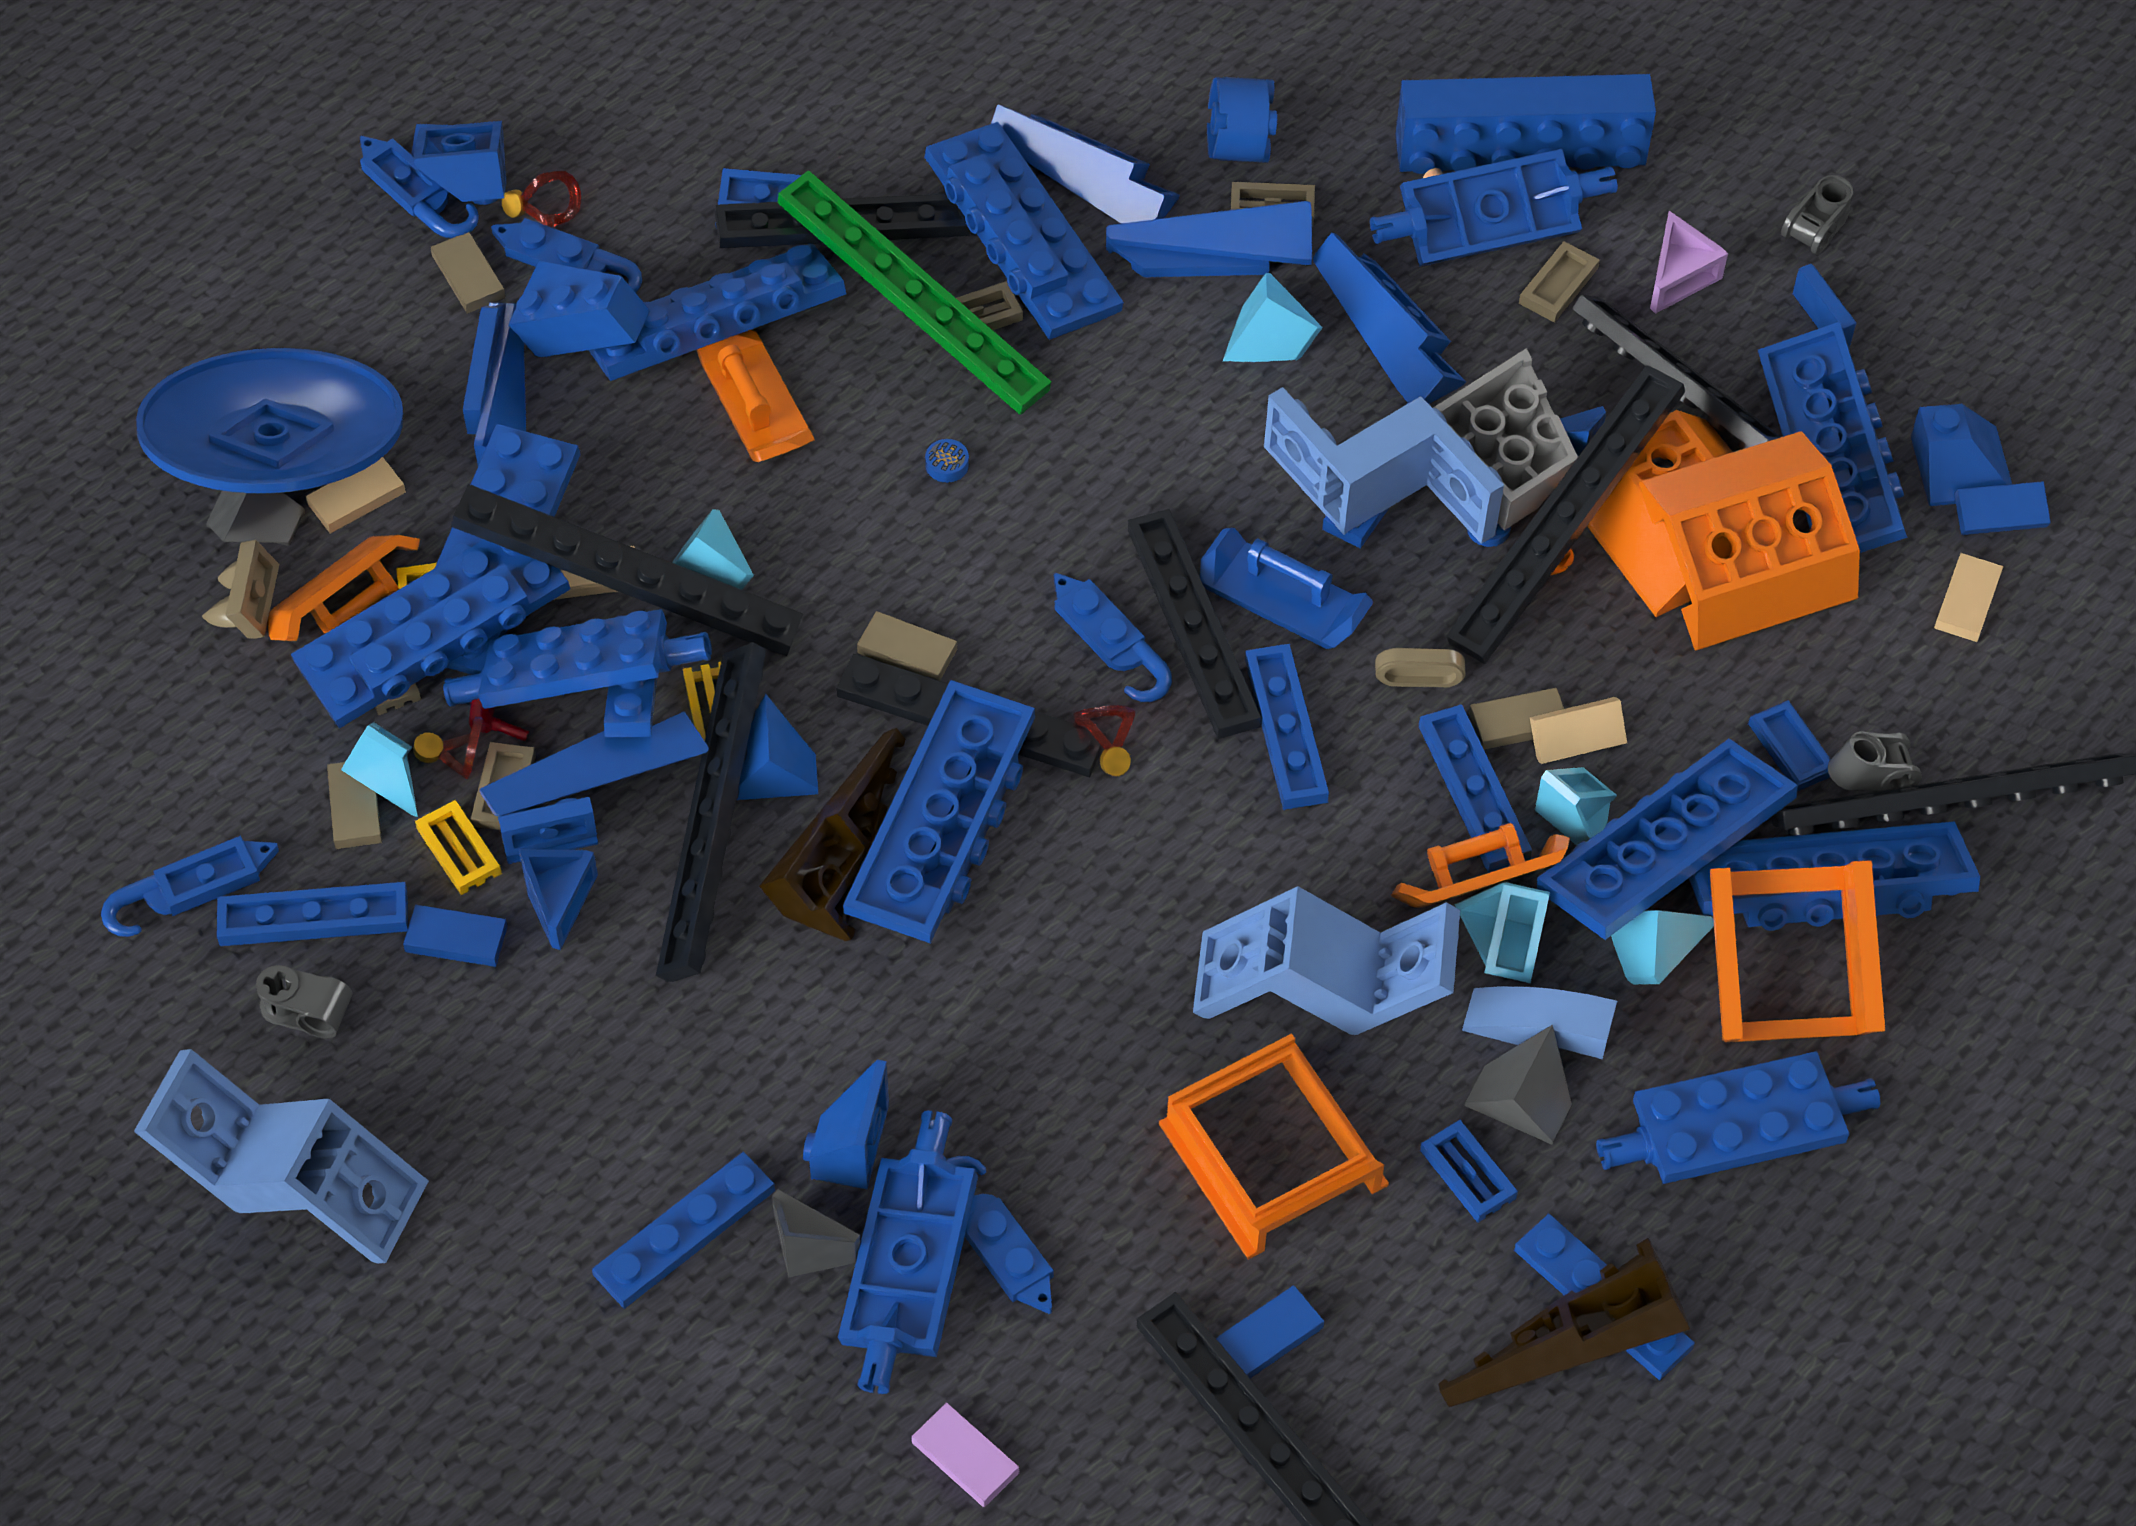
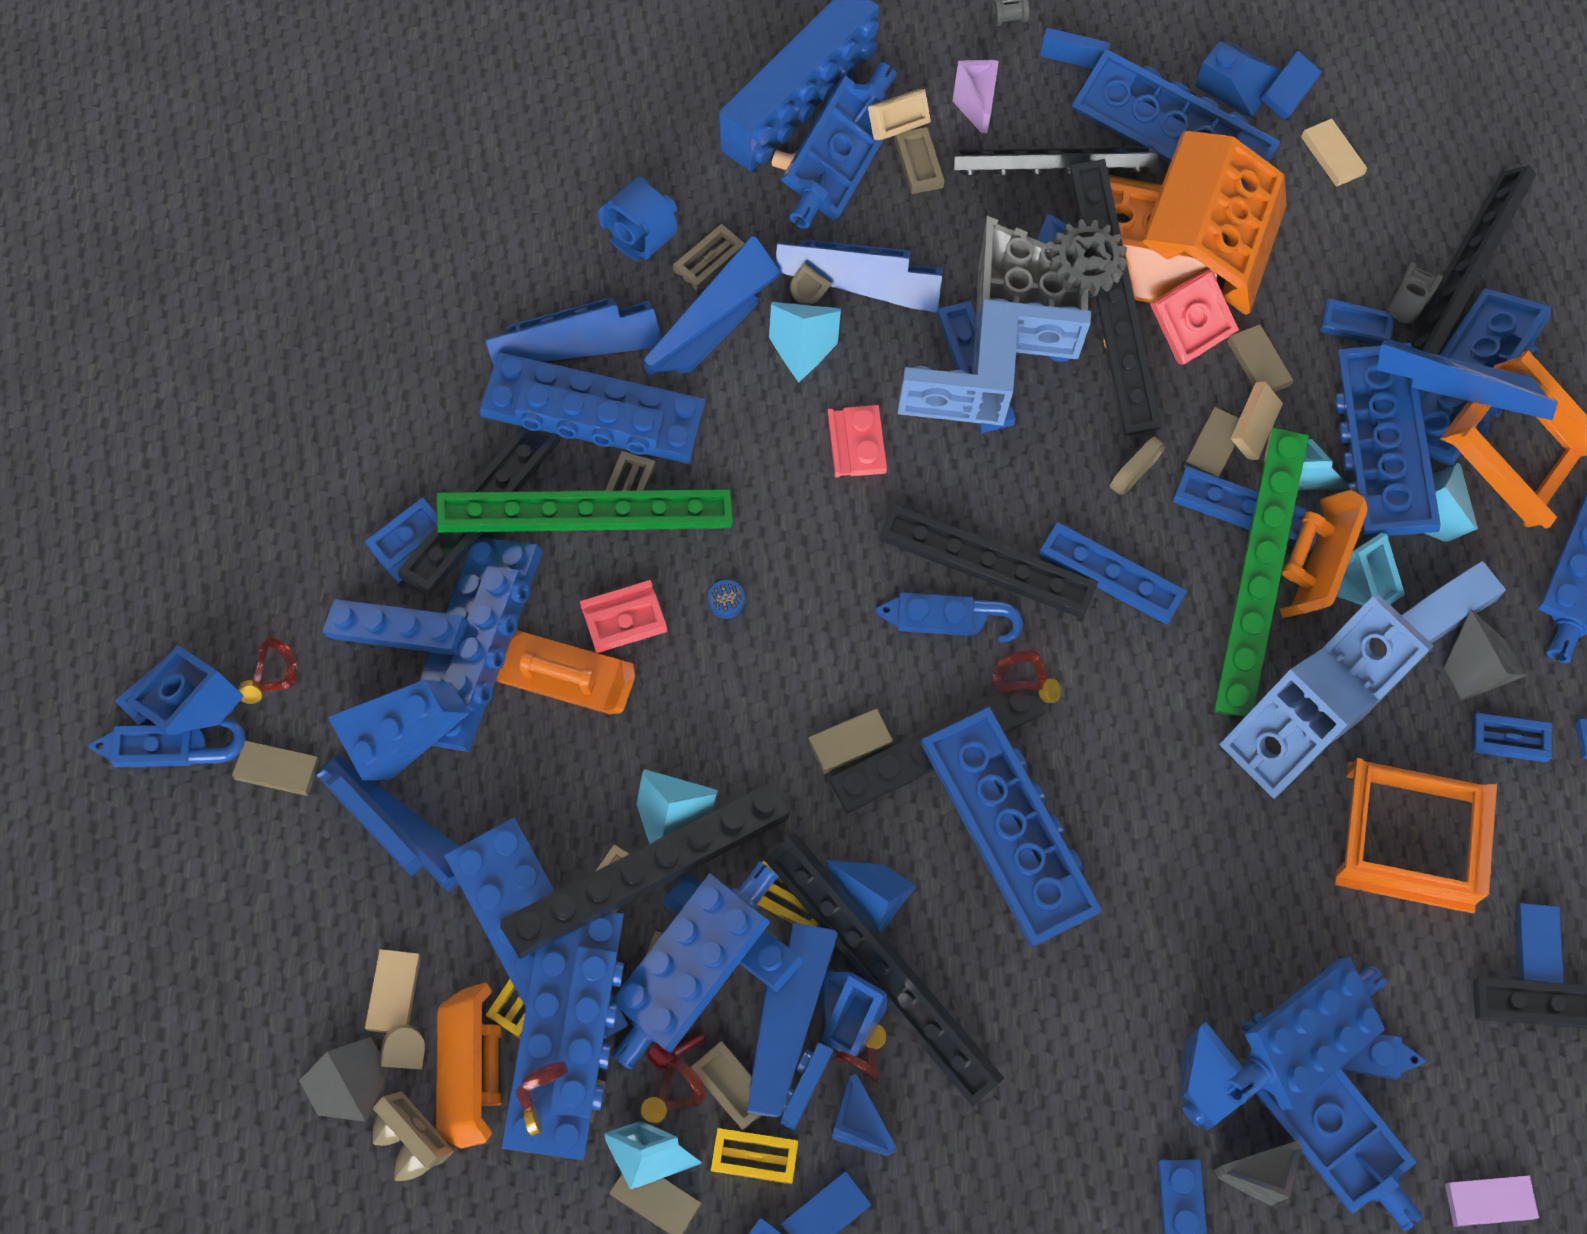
camera: 50 degrees left, 10 degrees up
(269, 420) = (237, 1008): blue dish -> none
(313, 532) = (403, 1048): none -> dark tan tile
(330, 644) = (532, 1080): none -> clear red piece
(537, 242) = (324, 695): blue plate -> none
(646, 860) = (874, 1043): none -> clear red piece
(648, 822) = (850, 1011): none -> blue slope
(667, 246) = (395, 627): none -> blue plate
(826, 858) = (976, 926): dark brown wedge -> none
(849, 398) = (623, 616): none -> coral plate
(964, 1160) = (1310, 1035): none -> blue plate
(1208, 443) = (857, 441): none -> coral plate
(1281, 589) = (1008, 492): blue piece -> none
(1323, 291) = (808, 286): none -> dark tan tile
(1423, 817) = (1260, 573): none -> green plate
(1579, 438) = (1084, 242): none -> dark grey gear
(1581, 225) = (899, 114): none -> tan tile
(1630, 599) = (1194, 316): none -> coral plate
(1654, 693) = (1259, 358): none -> dark tan tile
(1786, 835) = (1466, 380): none -> blue wedge

